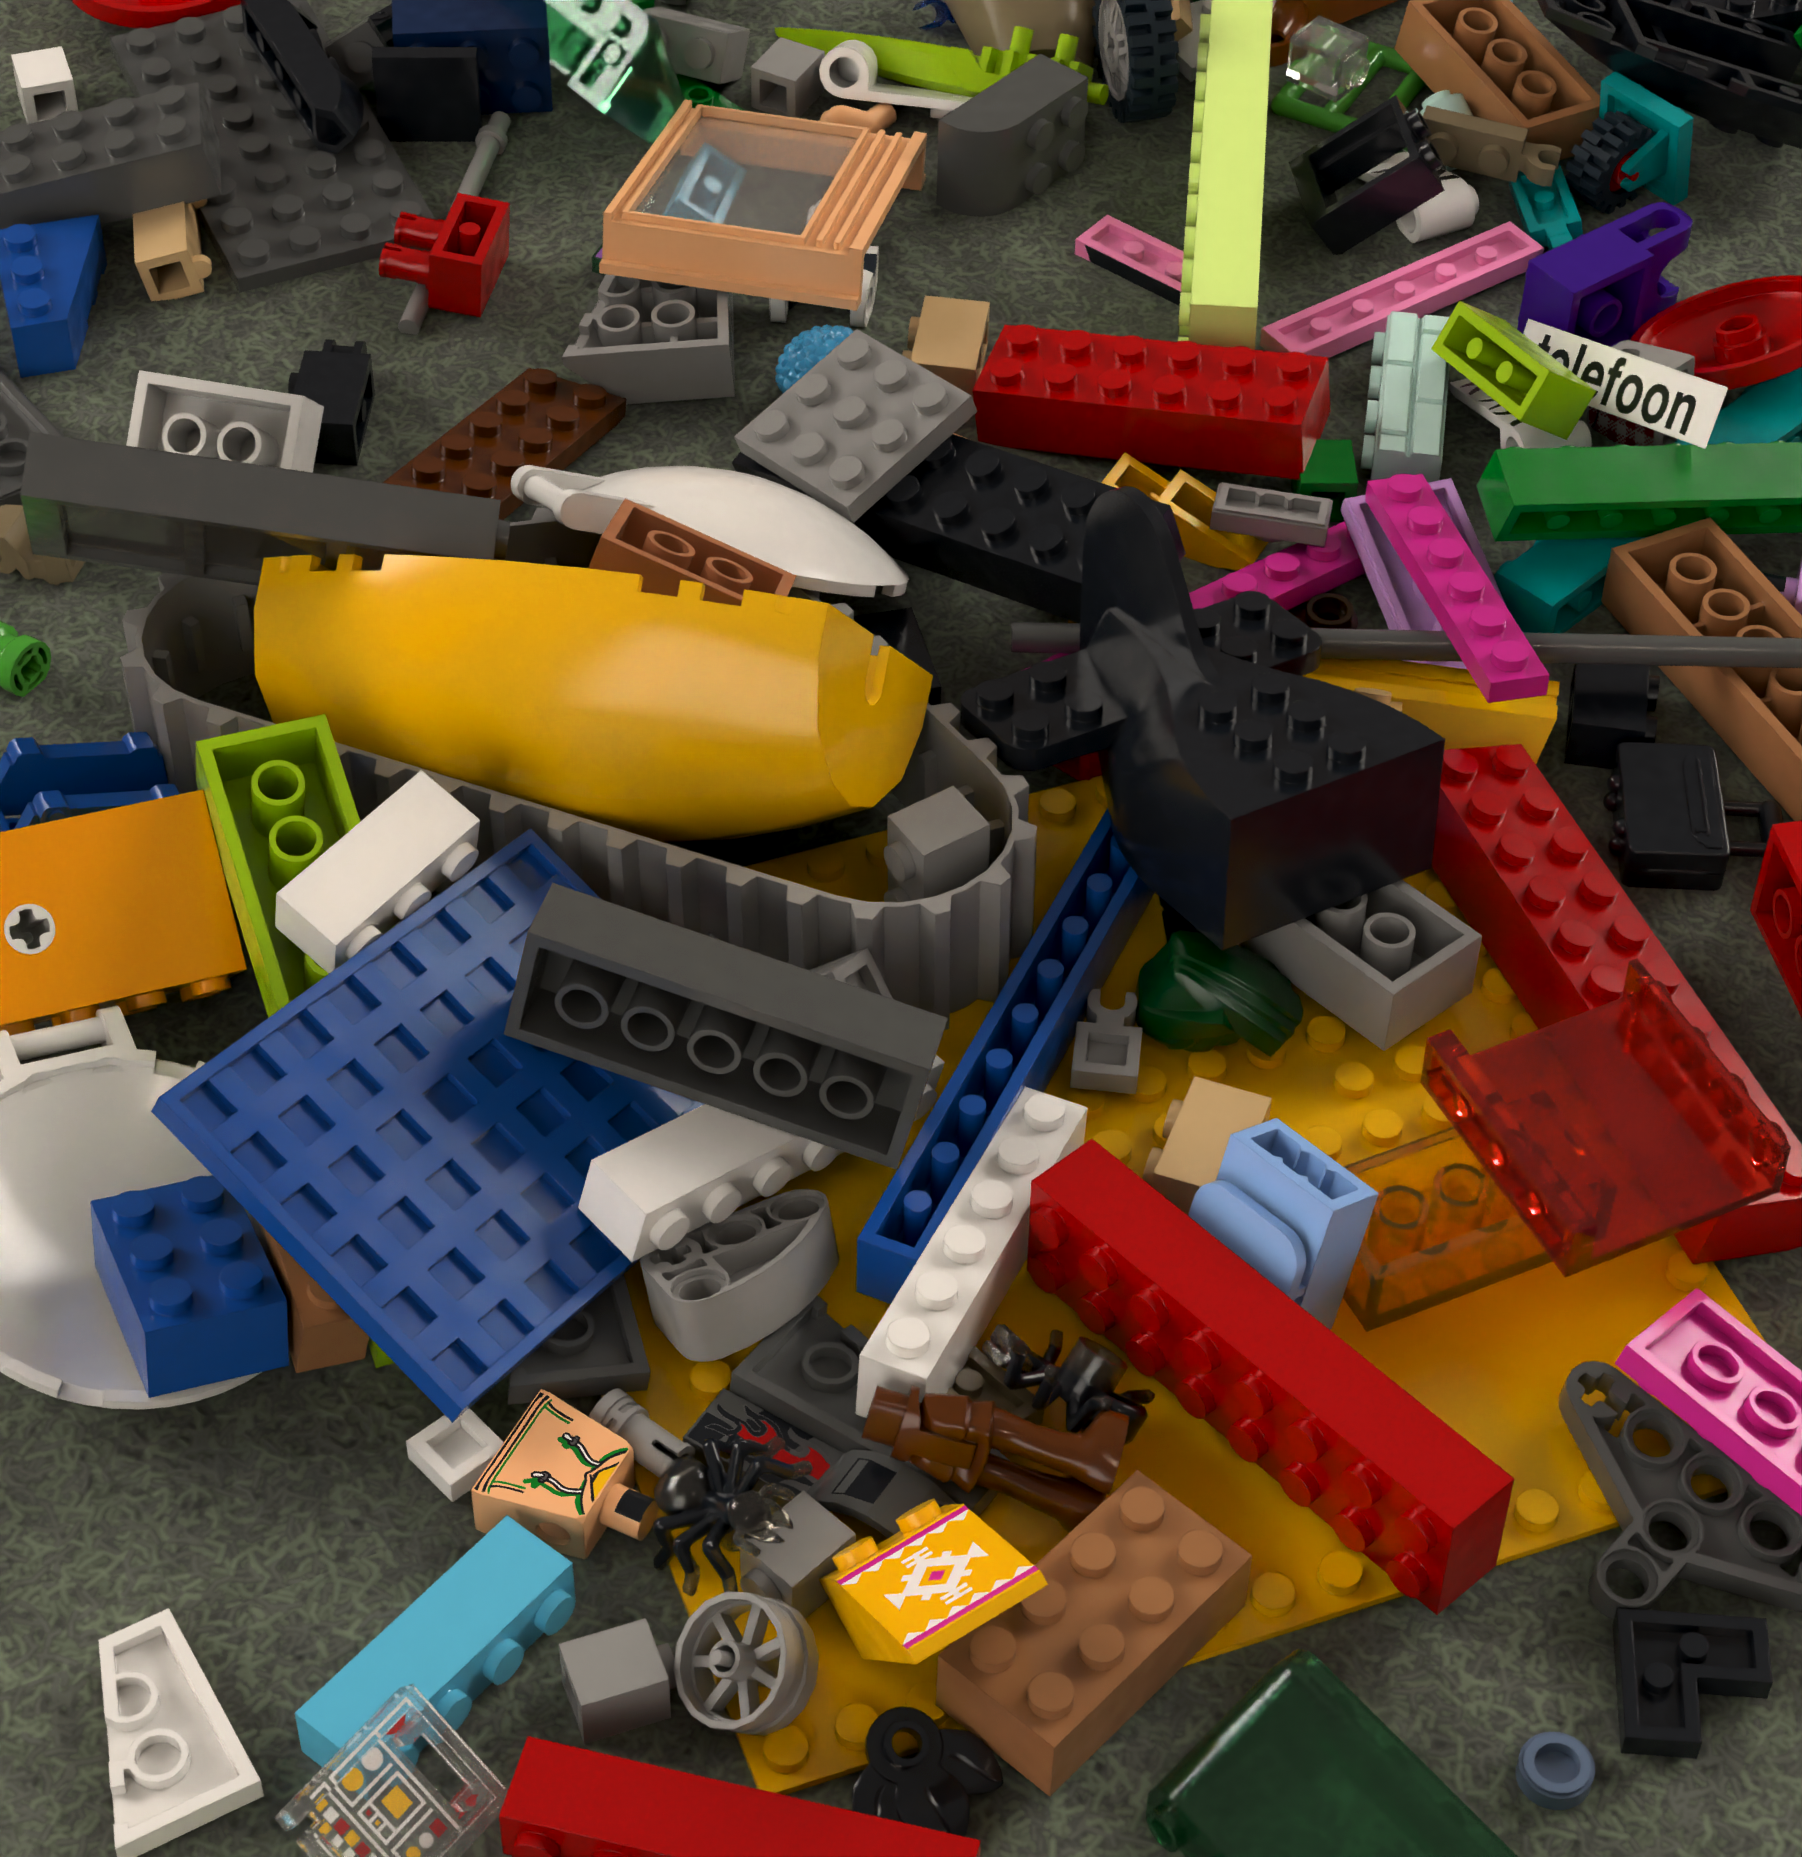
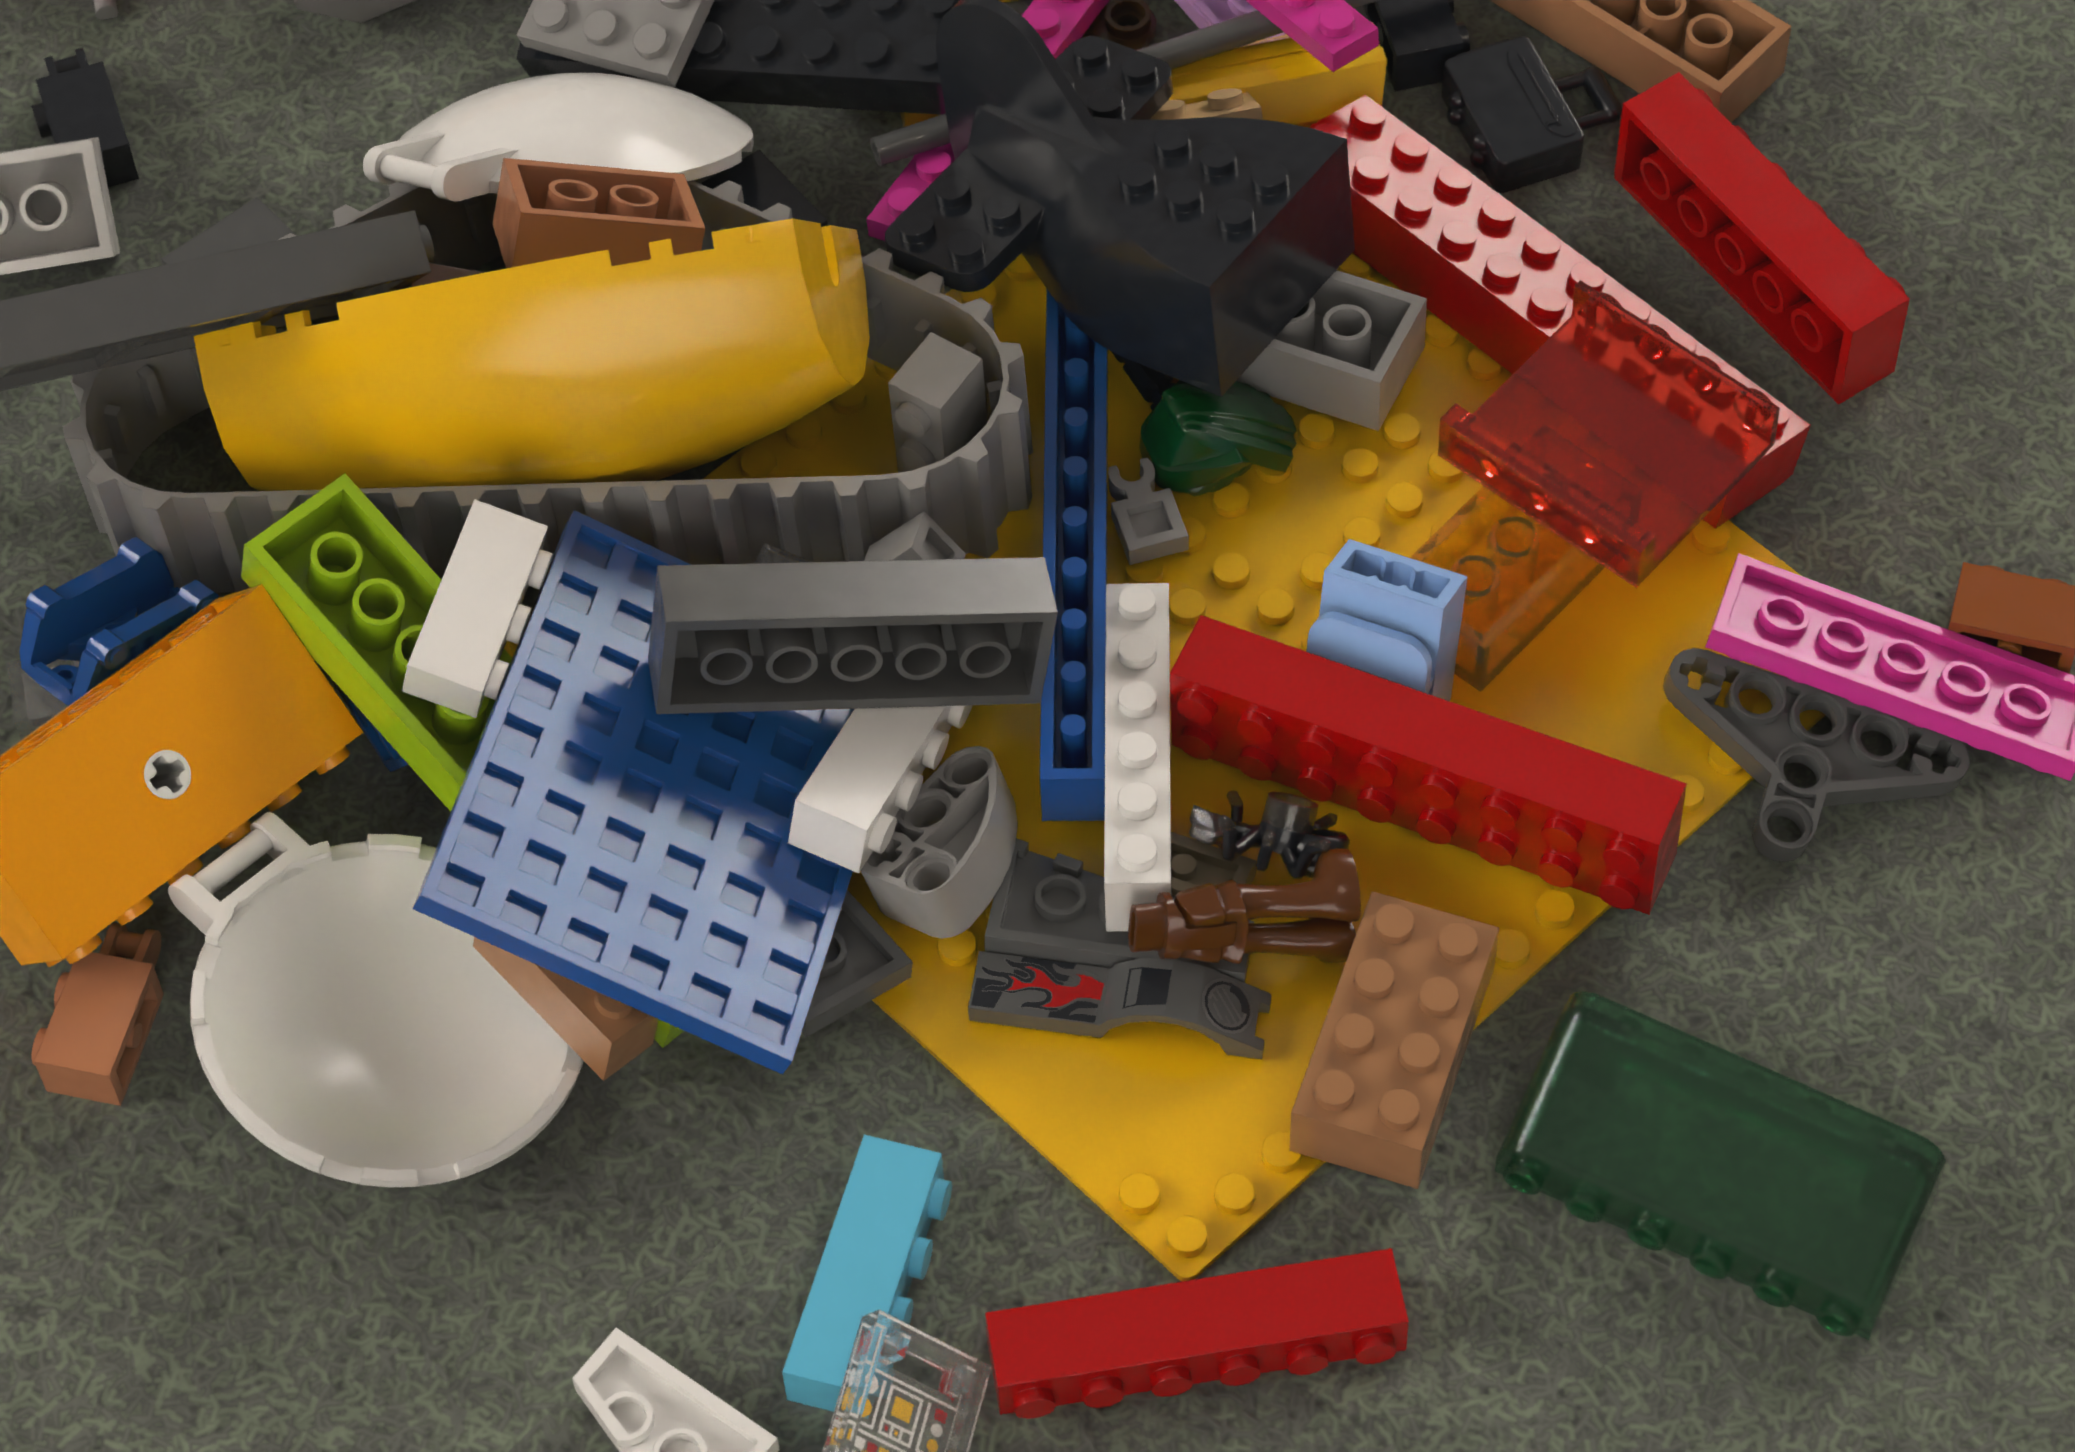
camera: 20 degrees left, 10 degrees up
(189, 1285) = (476, 1040): blue brick -> none
(454, 1452) = (778, 1099): white plate -> none
(526, 423) = (283, 131): reddish brown plate -> none
(563, 1480) = (886, 1084): light nougat torso -> none
(617, 1680) = (1023, 1235): light grey brick -> none
(651, 1443) = (913, 1018): light grey pin -> none
(722, 1505) = (1042, 1057): animal -> none
(782, 1664) = (1129, 1180): light grey wheel -> none
(793, 1568) = (1121, 1075): light grey brick -> none
(926, 1583) = (1257, 1058): yellow slope -> none
(933, 1784) = (1319, 1221): black plate -> none
(1198, 1137) = (1280, 577): tan brick -> none
(1555, 1770) = (1796, 1006): sand blue tile -> none
(1671, 1659) = (1845, 884): black plate -> none

